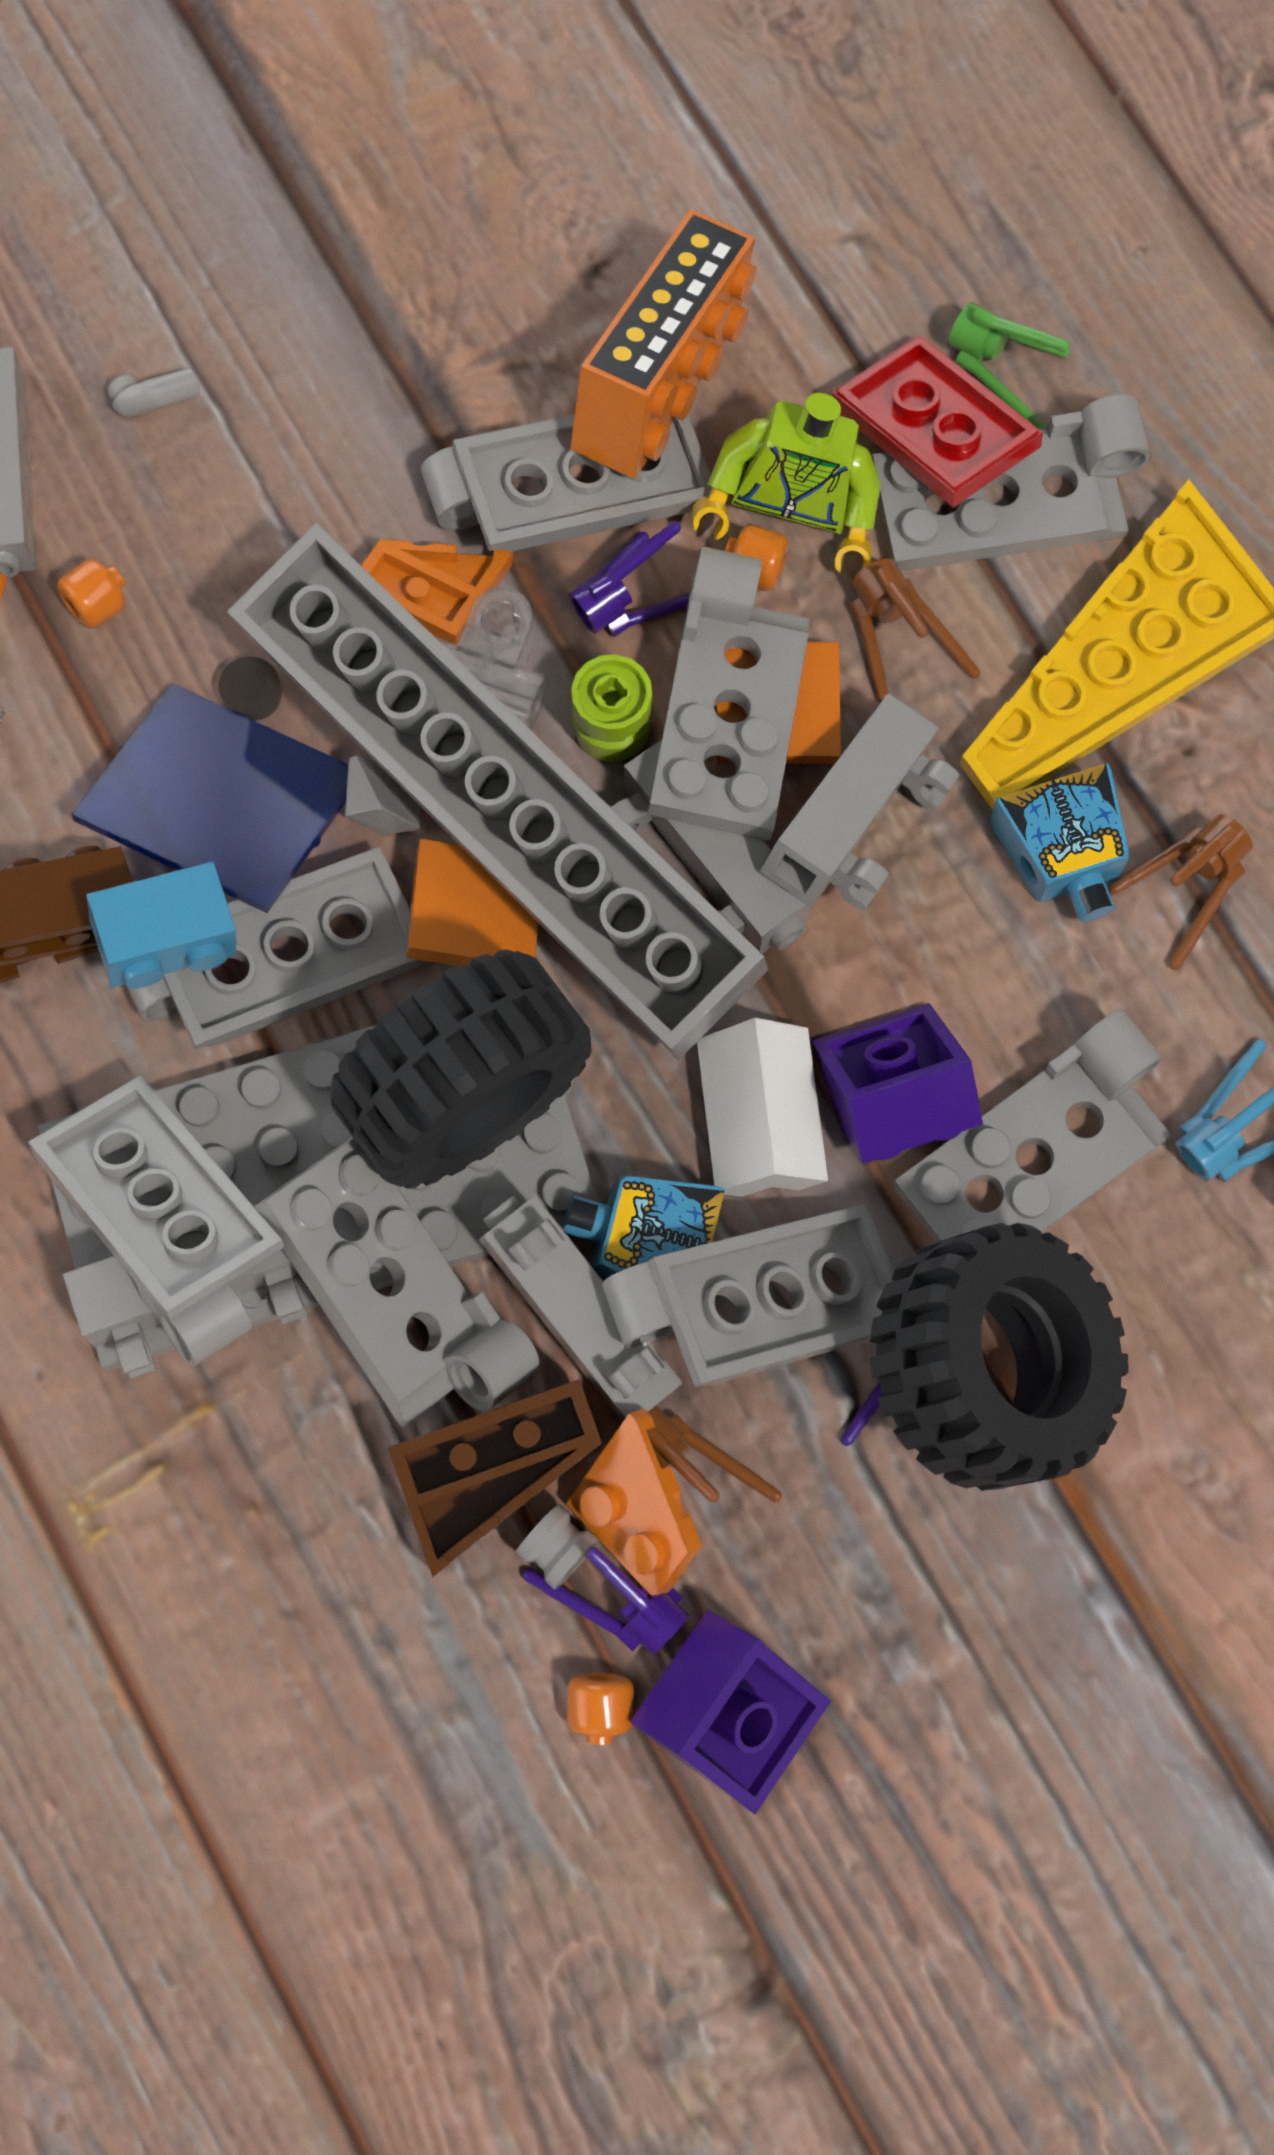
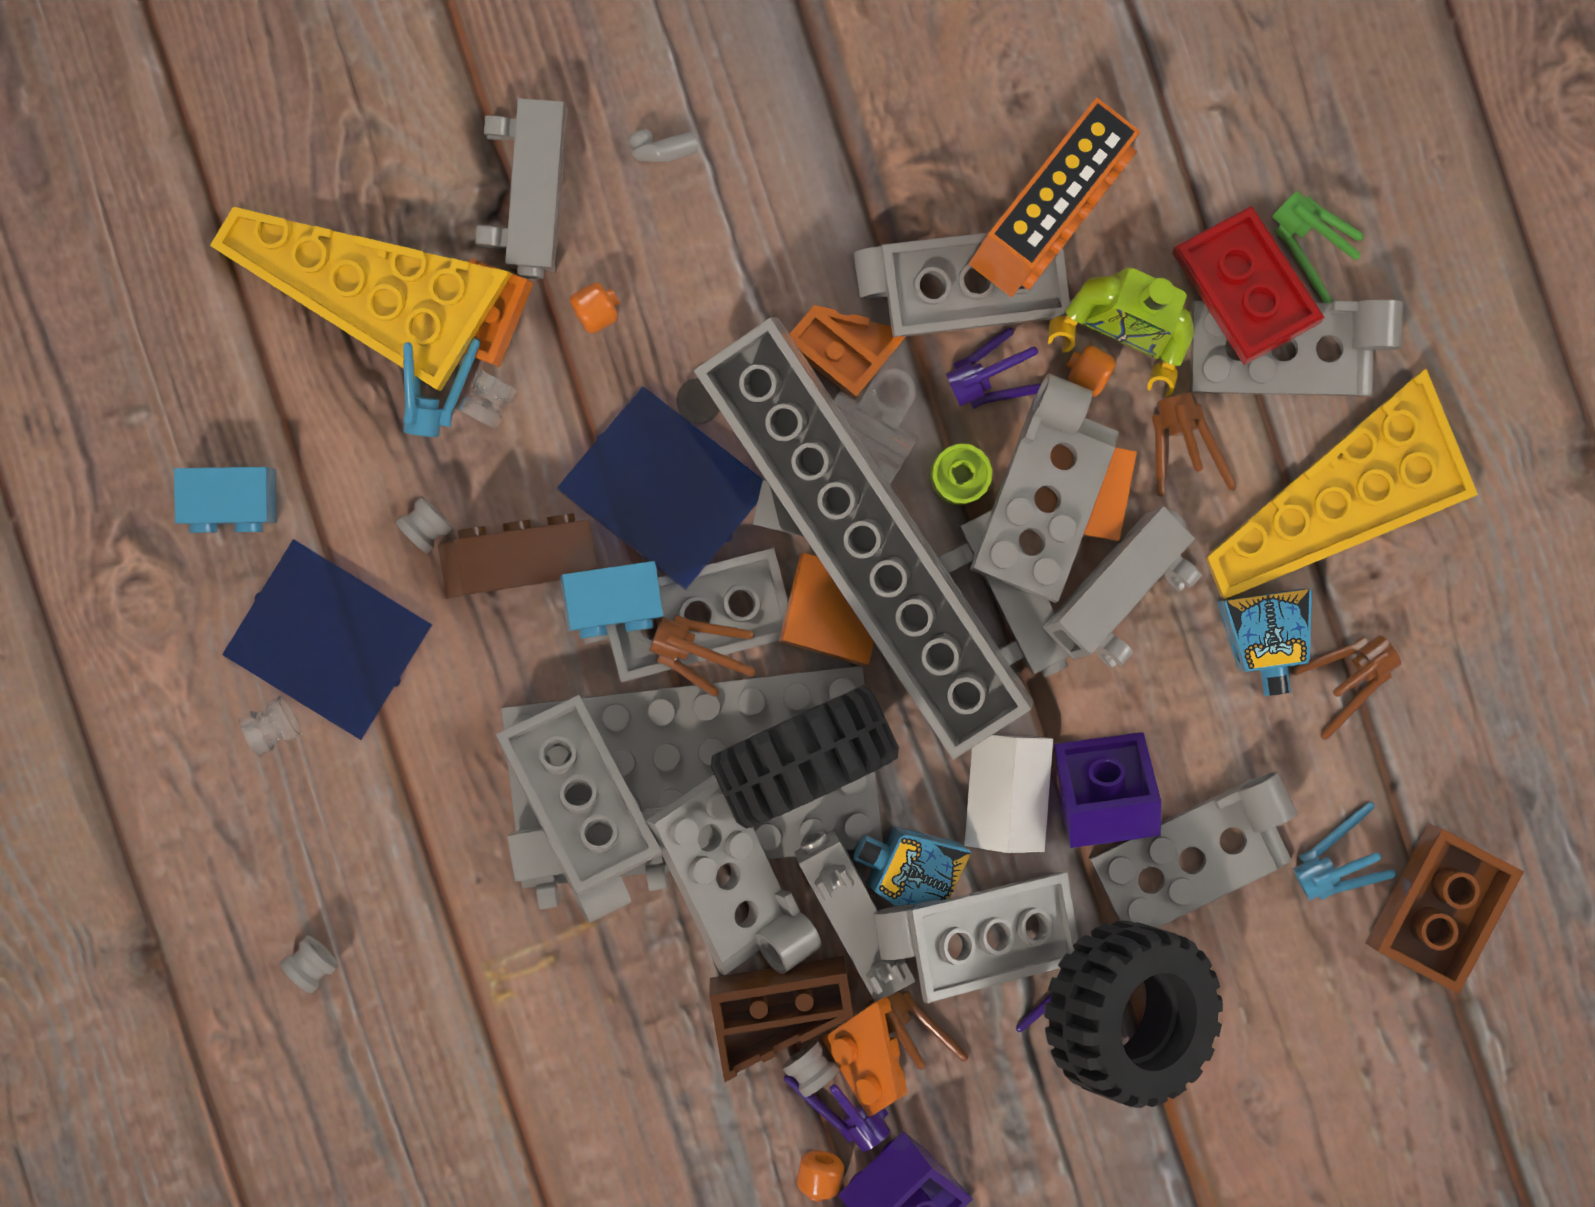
camera: 15 degrees right, 15 degrees up
(262, 970) = (675, 641): none -> dark orange plant

